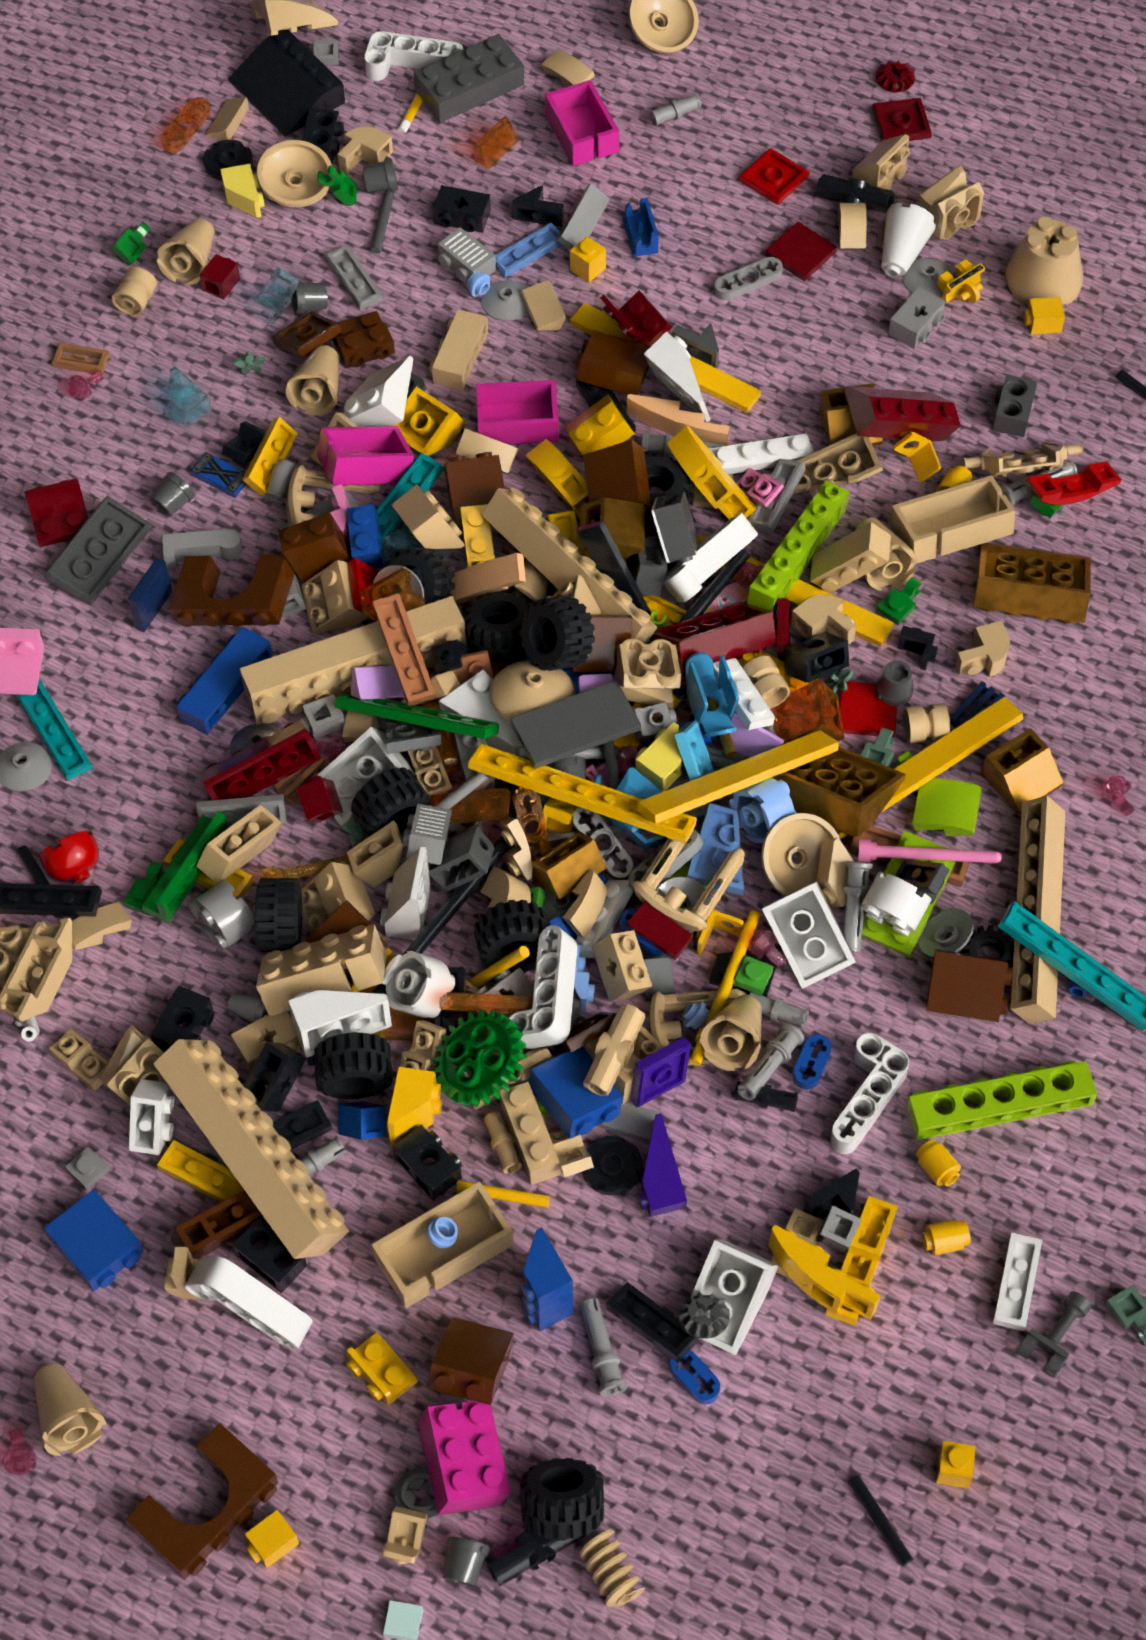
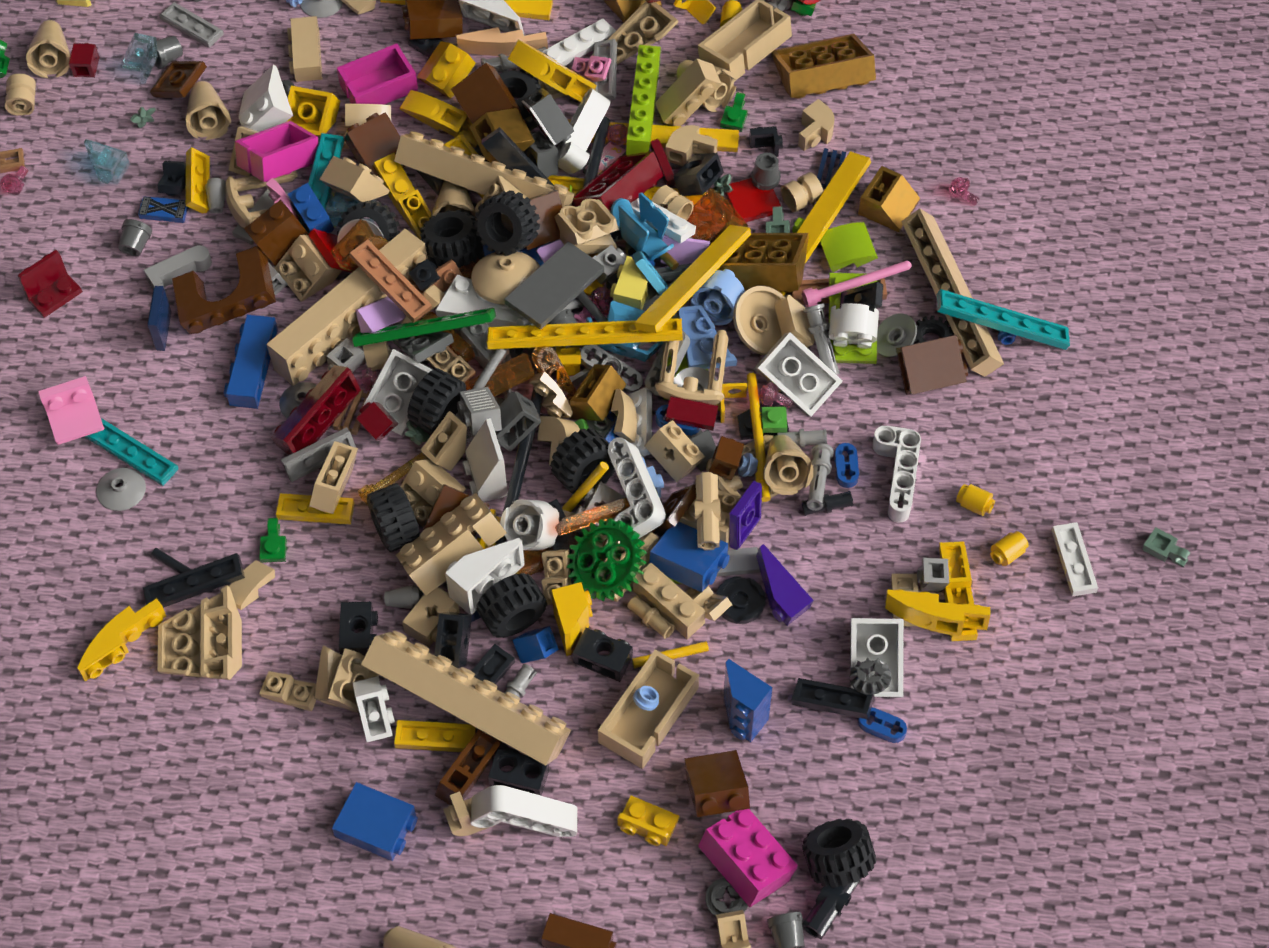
camera: 25 degrees left, 0 degrees up
(31, 1028) = (235, 683): white arm -> none
(72, 857) = (202, 541): red cylinder -> none
(87, 1168) = (338, 770): light grey plate -> none
(98, 551) = (95, 302): dark grey tile -> none
(183, 869) = (298, 512): green fence -> none
(223, 915) = (348, 535): light grey brick -> none
(363, 340) = (226, 68): reddish brown plate -> none
(488, 577) = (426, 204): light nougat slope -> none
(604, 1361) = (811, 741): light grey pin -> none
(609, 1570) = (897, 889): tan piece -> none
(672, 997) = (726, 457): none -> reddish brown brick
(839, 1193) = (920, 548): black slope -> none
(880, 1520) = (1068, 768): black bar -> none
(955, 1464) = (1101, 704): yellow brick -> none
(1072, 1075) = (1045, 408): lime brick -> none
(1075, 1305) = (1124, 558): dark grey bar -> none

